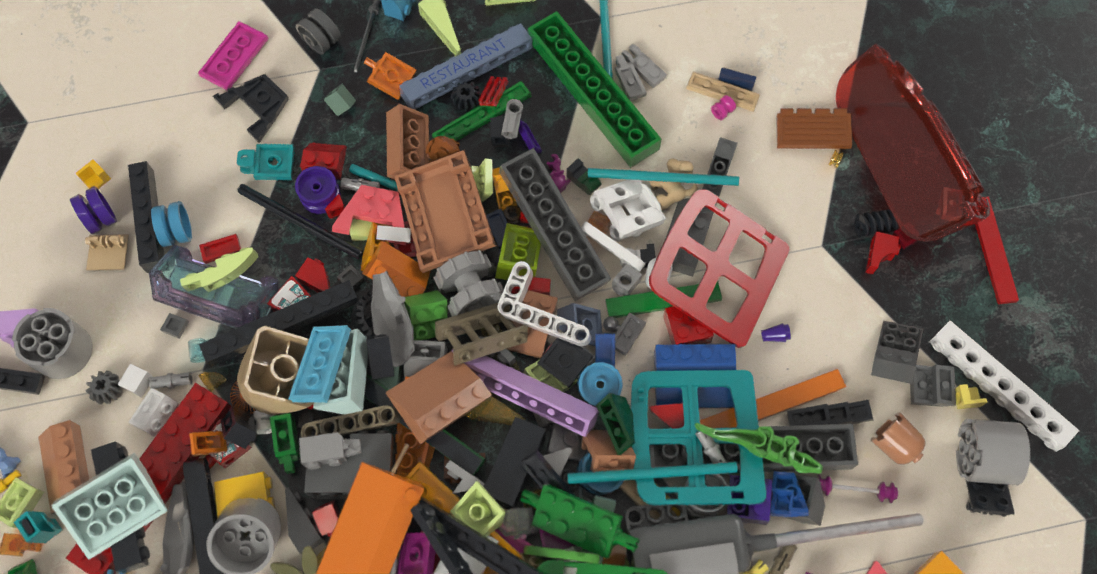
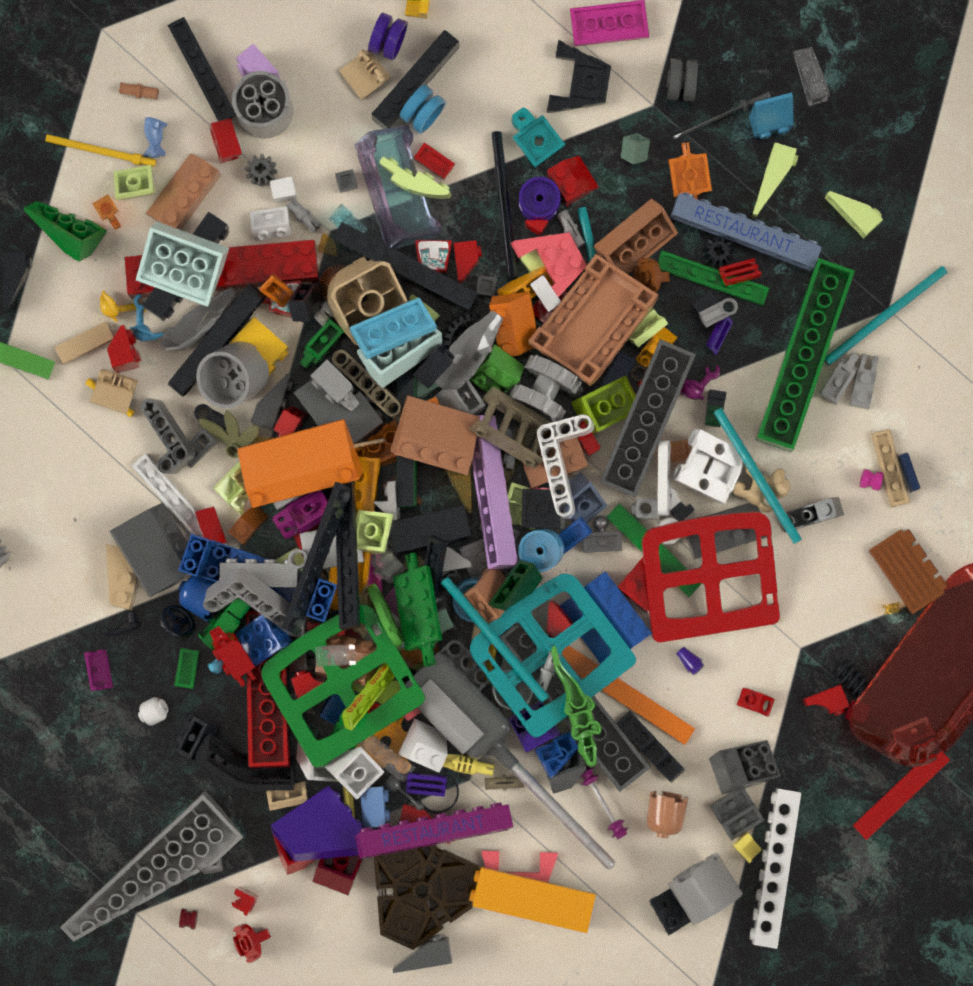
camera: 55 degrees right, 15 degrees up
(37, 527) = (129, 215): teal piece -> none
(54, 399) = (225, 140): none -> red hinge
(844, 307) = (754, 701): none -> red bracket

